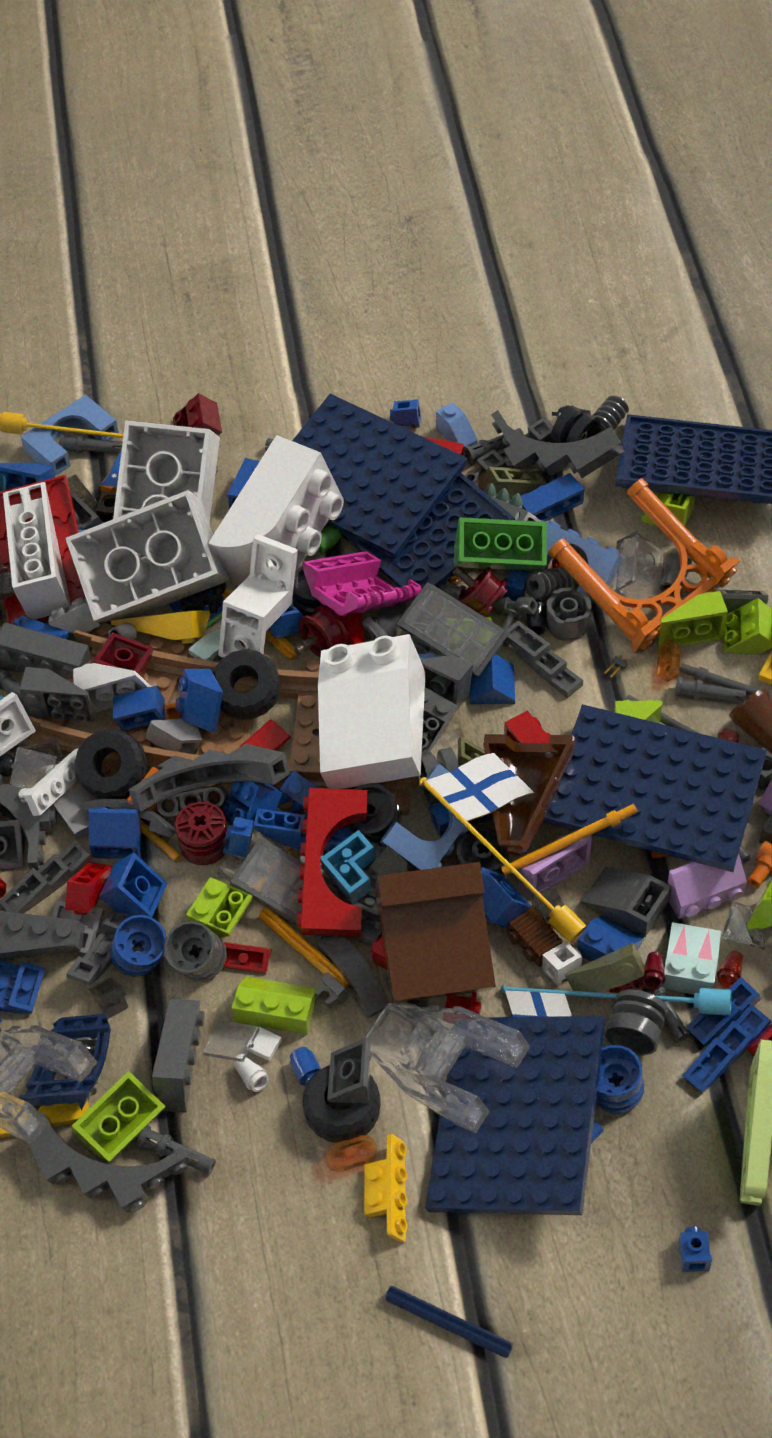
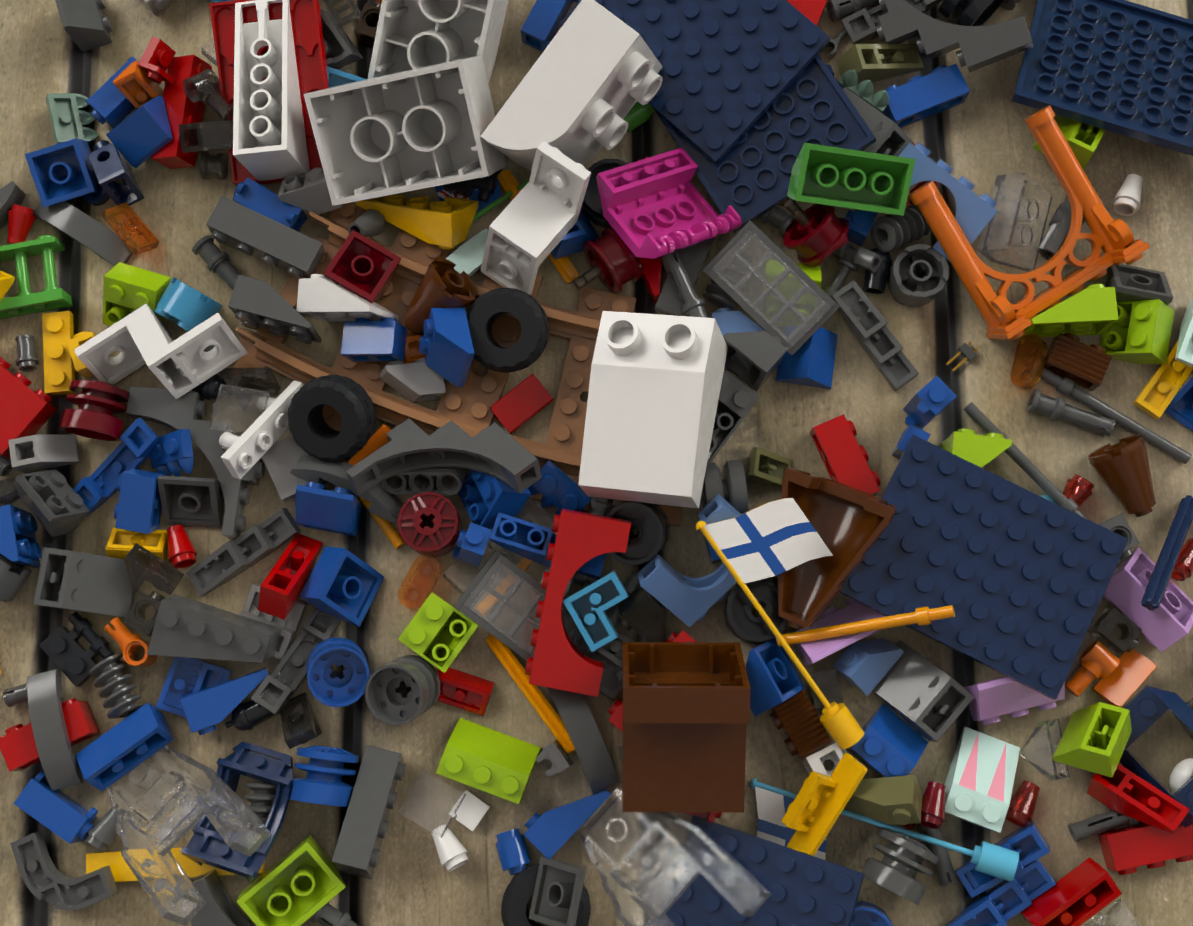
camera: 10 degrees right, 25 degrees up
(33, 987) = (215, 703): none -> blue slope
(69, 994) = (248, 716): none -> black piece
(136, 1026) = (324, 776): none -> blue wheel
(186, 656) = (439, 289): none -> reddish brown cone
(194, 881) = (418, 581): none -> clear orange plate
(345, 1032) = (557, 825): none -> blue slope
(560, 978) = (821, 803): none -> yellow bracket
(579, 884) = (867, 663): none -> medium blue slope
(594, 688) = (928, 403): none -> blue brick
(707, 654) = (1077, 361): none -> reddish brown brick
(724, 541) = (1129, 196): none -> white cone

